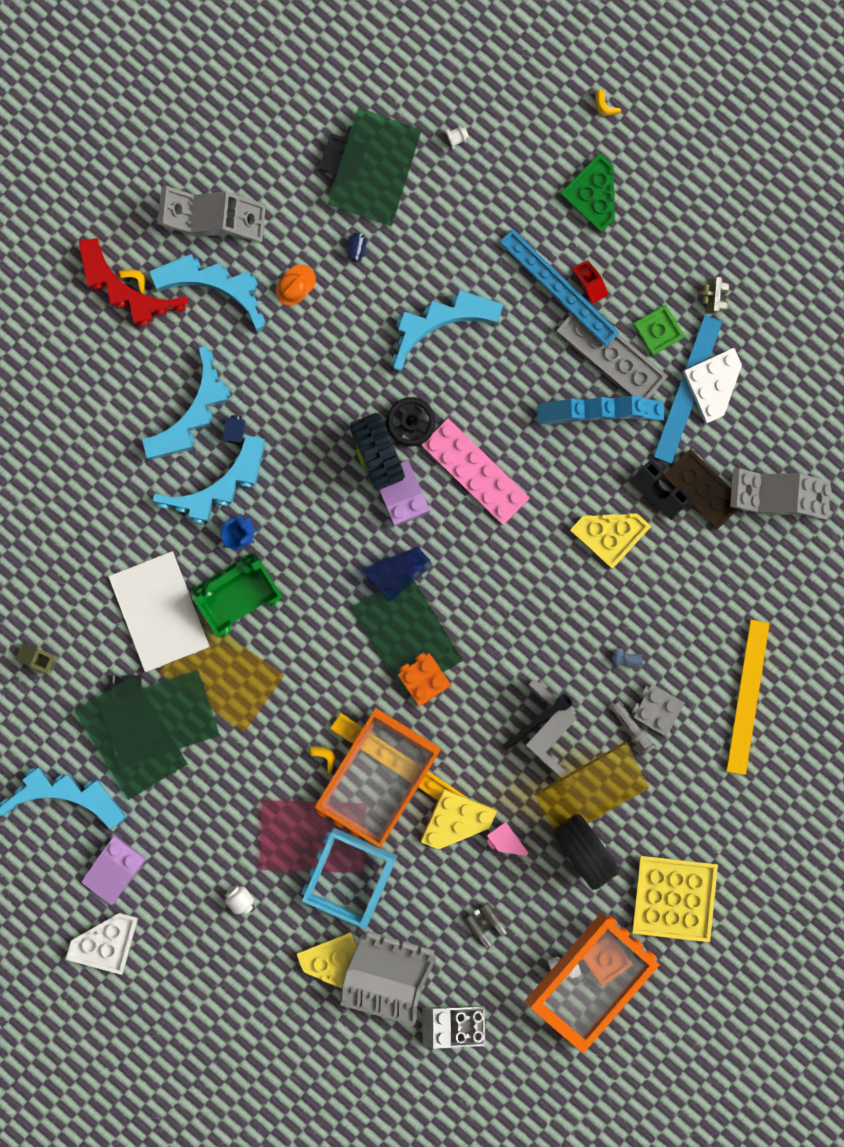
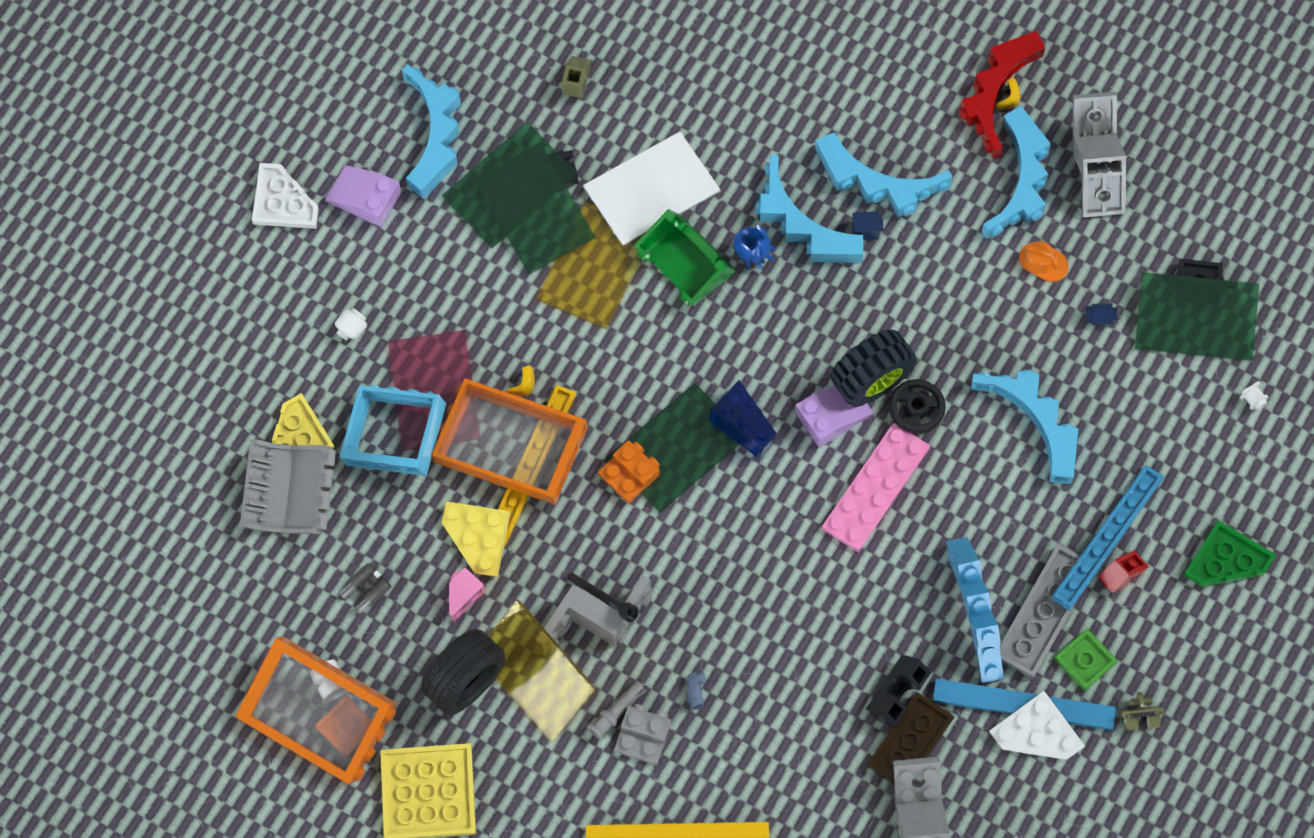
camera: 80 degrees right, 15 degrees down
(453, 1027) = (245, 574): light grey slope -> none
(610, 535) = (835, 646): light yellow plate -> none

